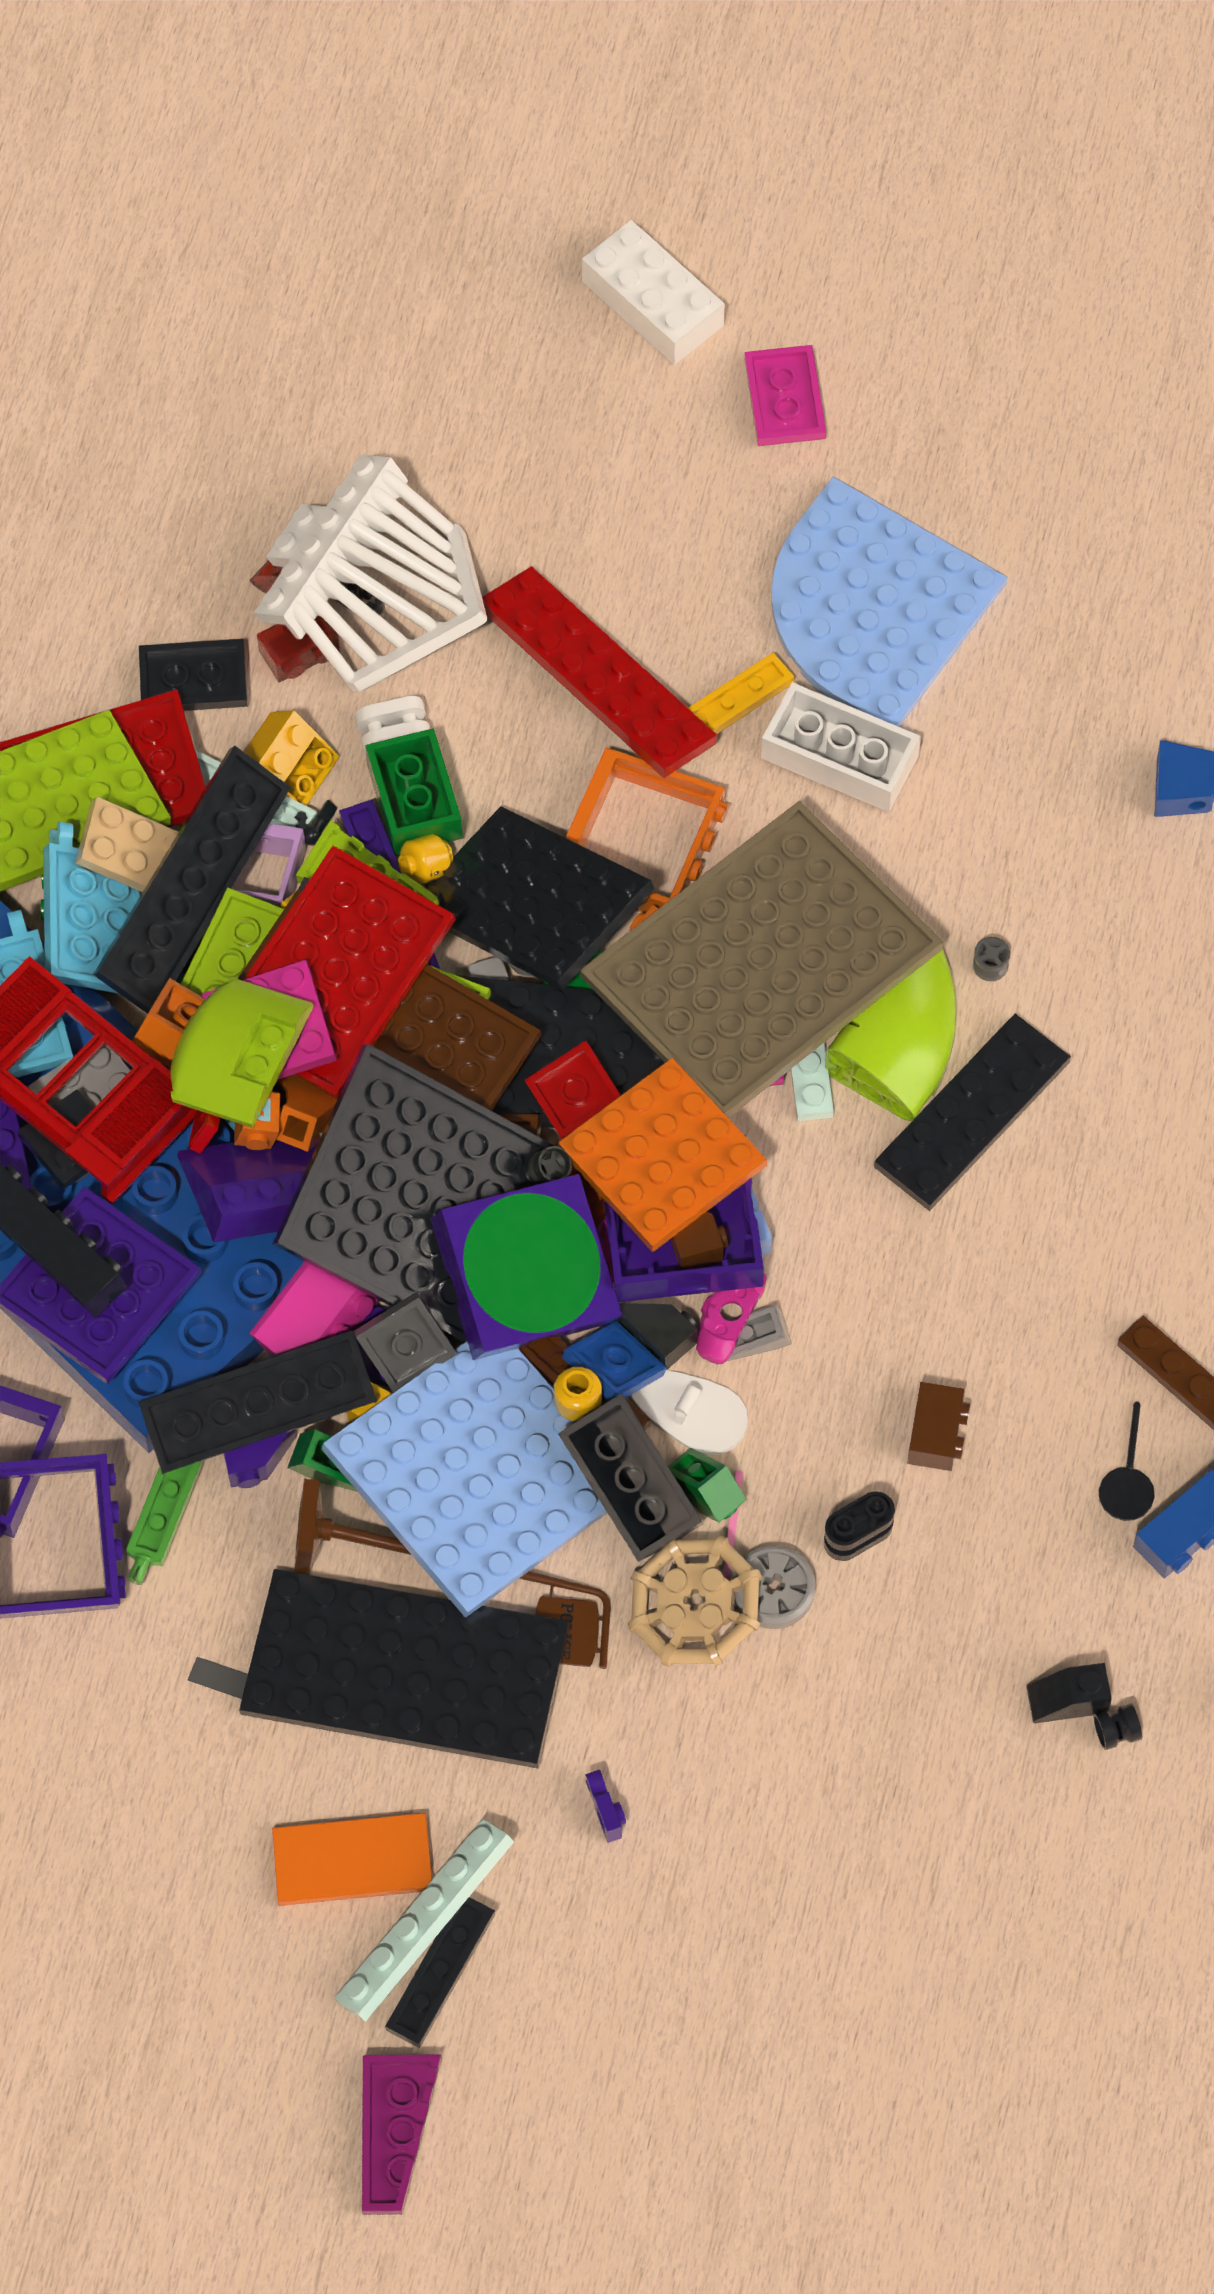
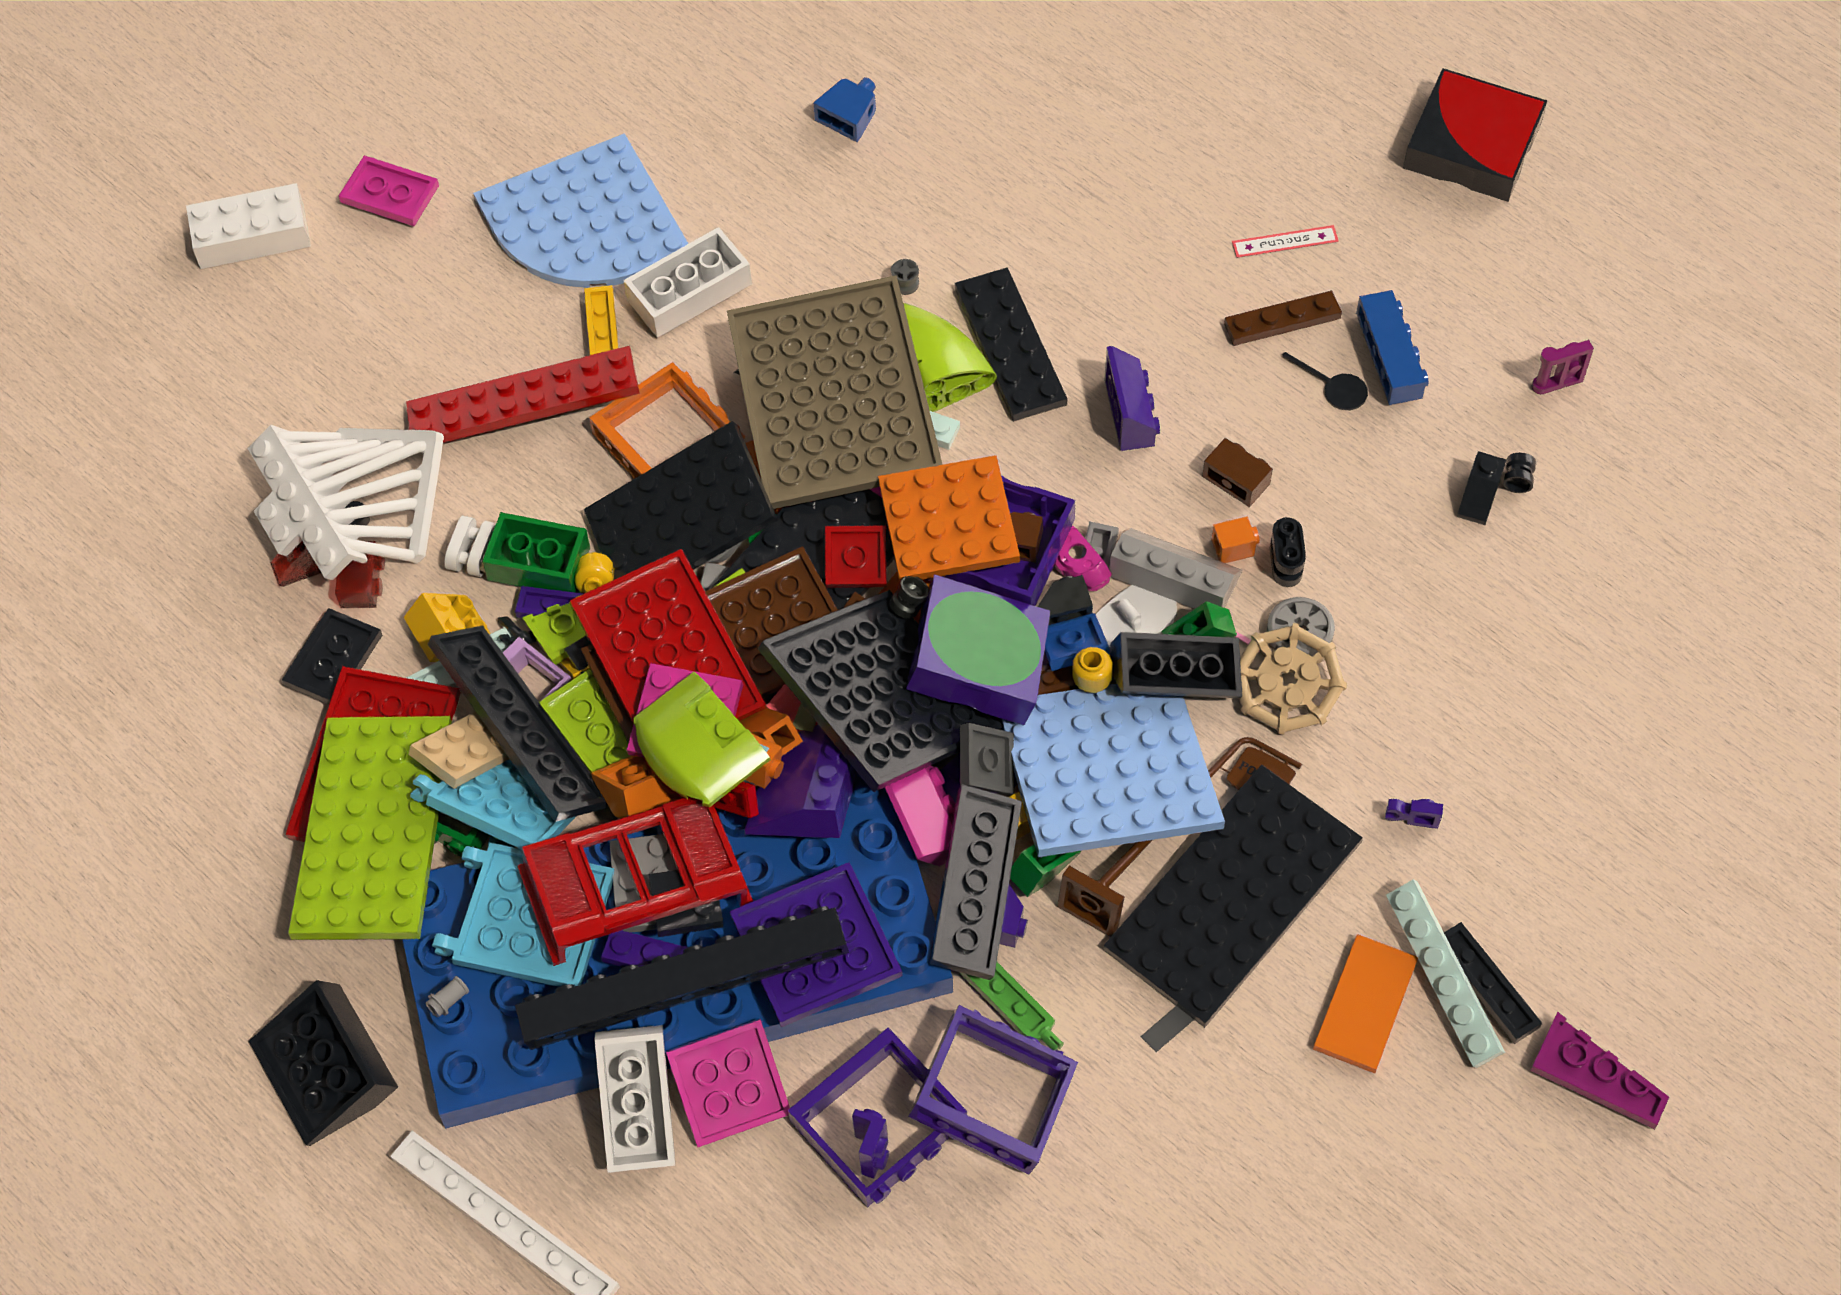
camera: 60 degrees left, 5 degrees down
(771, 1421) = (1172, 570): none -> light grey slope
(844, 1465) = (1234, 539): none -> orange brick
(959, 1267) = (1129, 400): none -> dark purple slope

